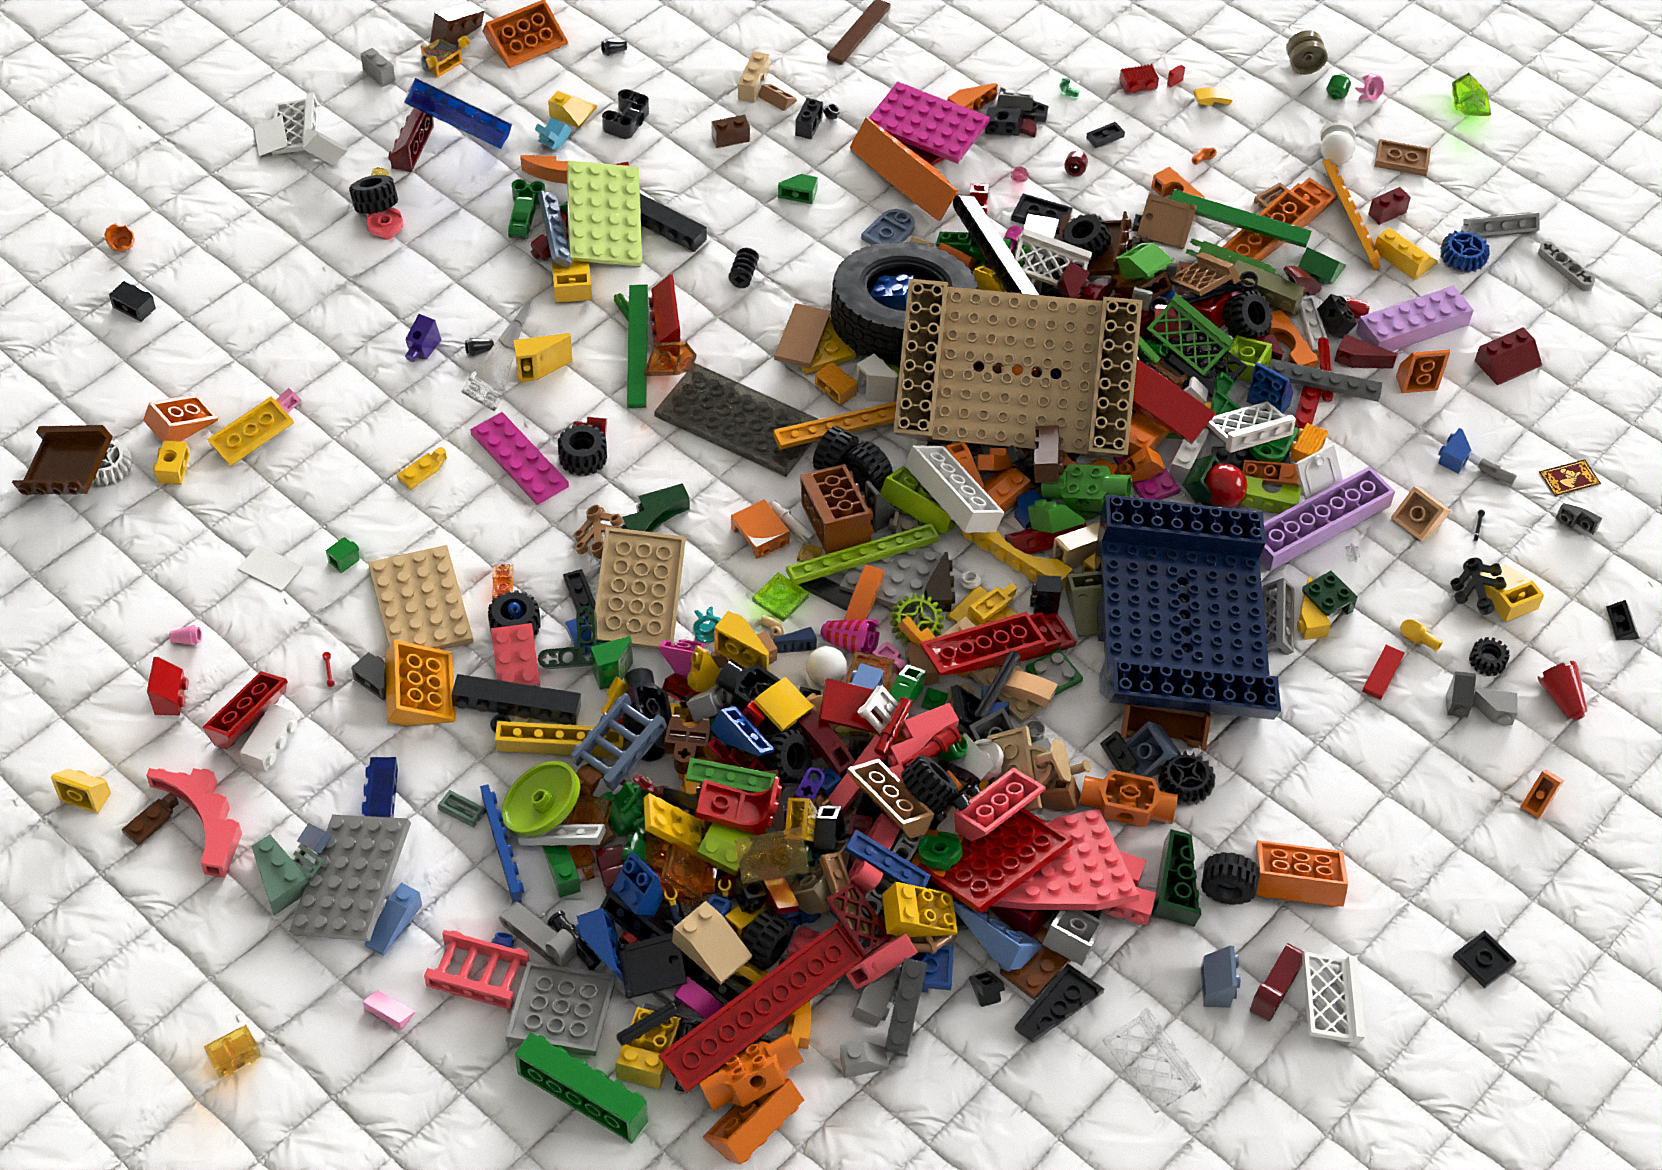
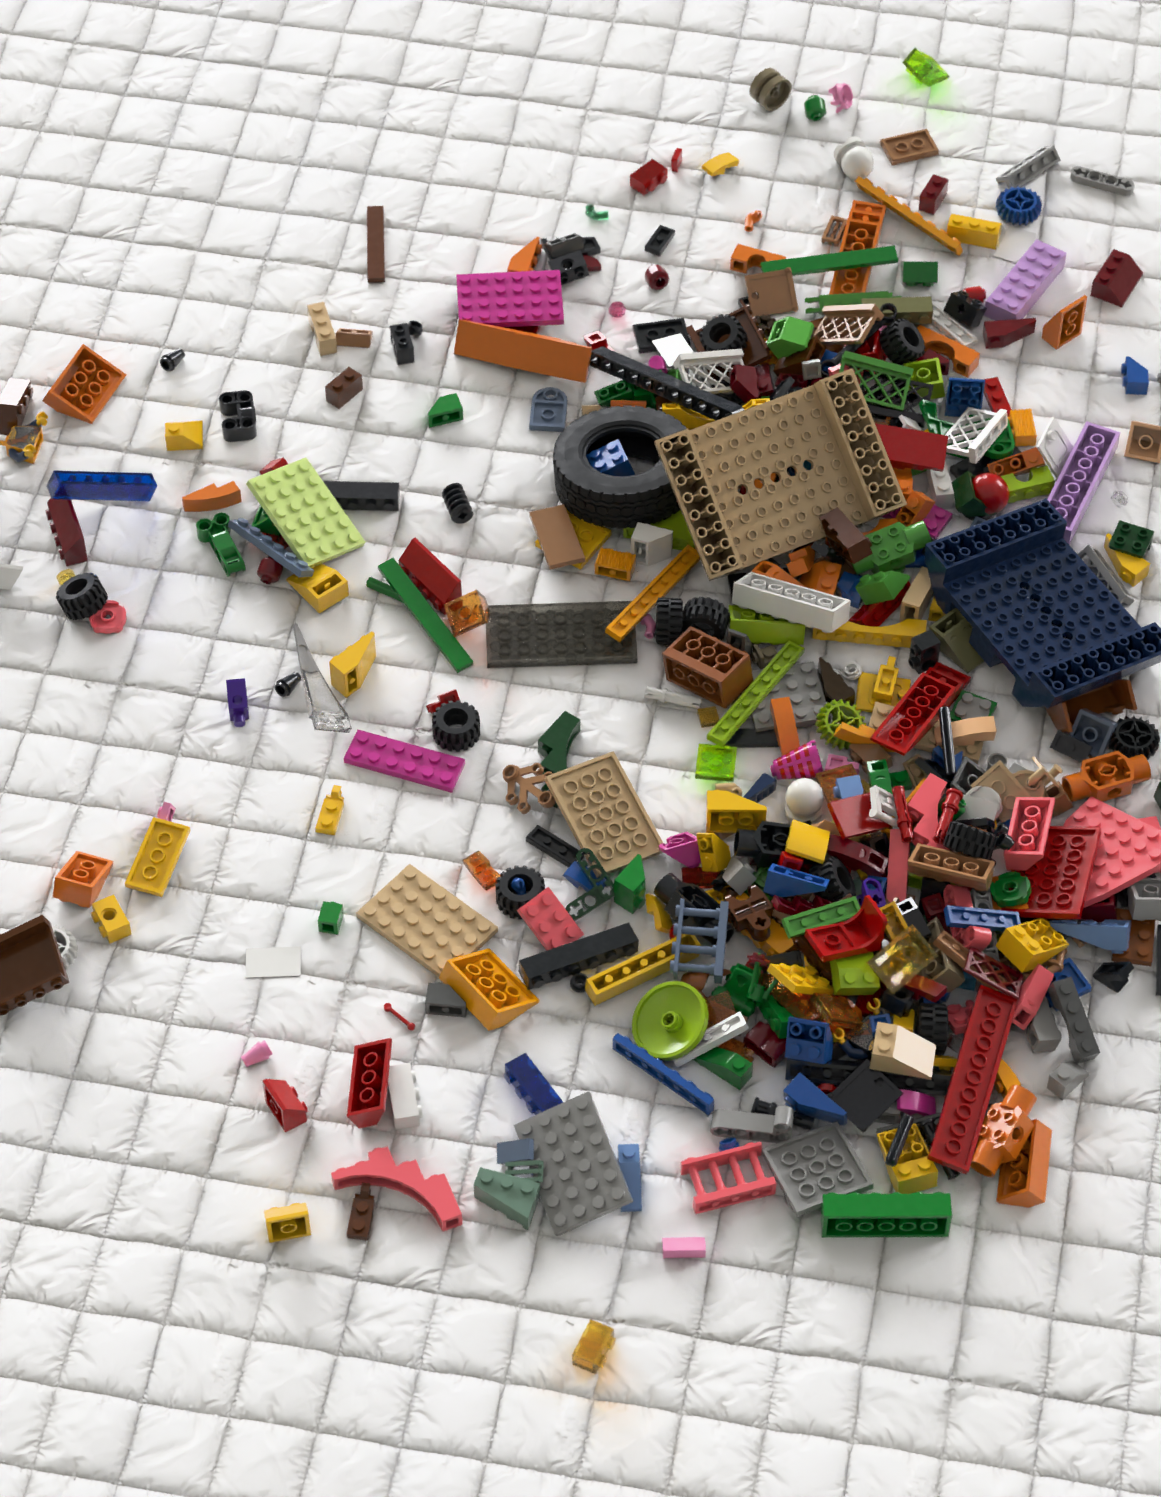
camera: 30 degrees left, 0 degrees up
(459, 811) = (605, 1068): sand green tile -> none
(554, 134) = (190, 464): medium azure brick -> none
(705, 631) = (681, 820): teal piece -> none
(761, 528) = (656, 714): orange panel -> none
(1302, 278) = (918, 290): dark red slope -> none
(1324, 361) = (987, 358): red axle -> none
(1328, 380) = (1000, 366): dark grey plate -> none

